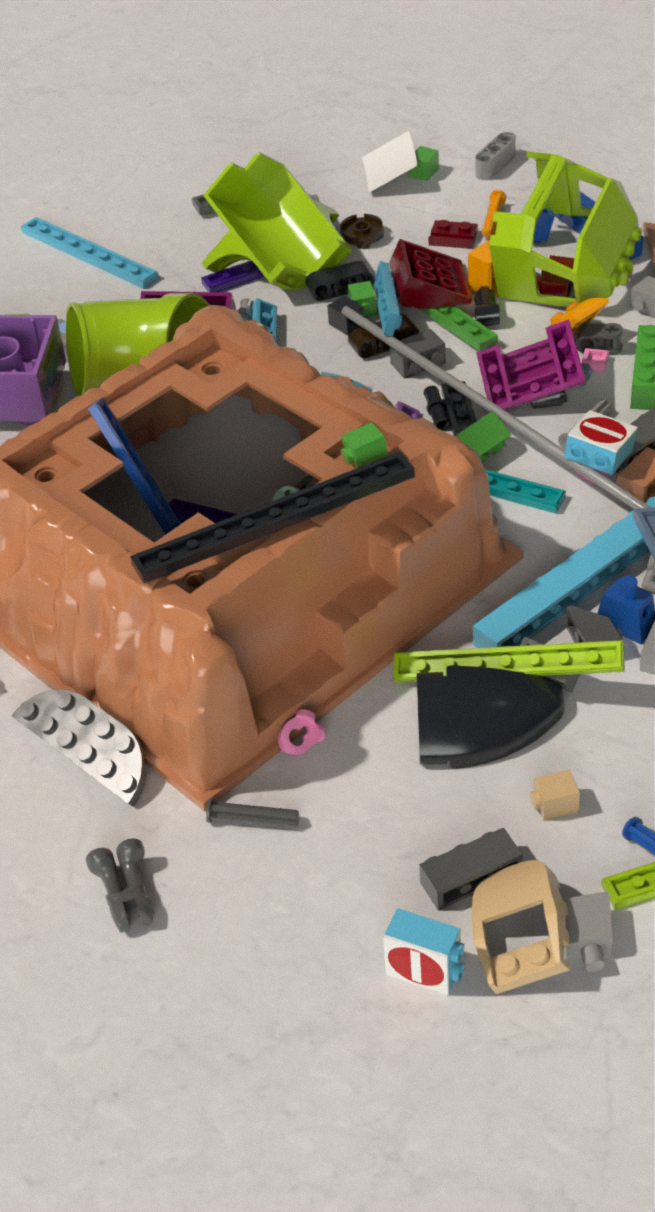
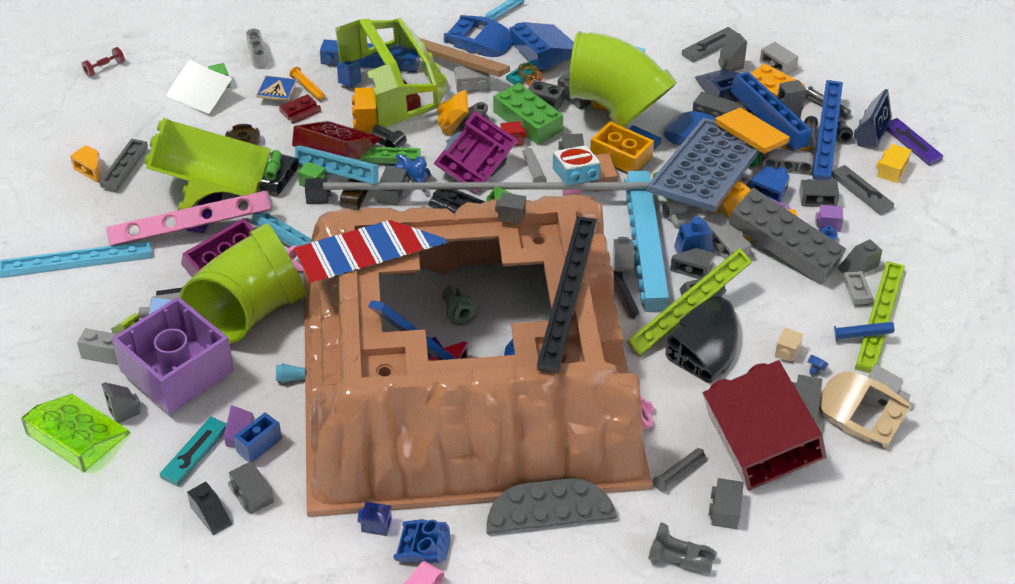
camera: 55 degrees left, 0 degrees up
(185, 353) = (362, 248): none -> sticker
(203, 269) = (188, 218): none -> bright pink beam
(207, 173) = (87, 162): none -> light orange slope
(235, 885) = (727, 503): none -> dark grey brick
(330, 97) = (117, 55): none -> dark red wheel
(331, 264) = (273, 165): none -> bright green pin
(356, 403) = (511, 208): none -> dark grey brick
(363, 446) = (553, 226): bright green brick -> none
(370, 838) = (764, 424): none -> dark red brick
(423, 951) = (850, 452): piece -> none
(455, 201) = (276, 88): none -> piece
(458, 352) = (415, 169): none -> blue animal
(490, 589) = (625, 294): none -> black axle
(521, 567) = (623, 254): none -> dark grey slope
(555, 839) = (817, 364): none -> blue tile
(611, 378) = (515, 129): none -> red brick

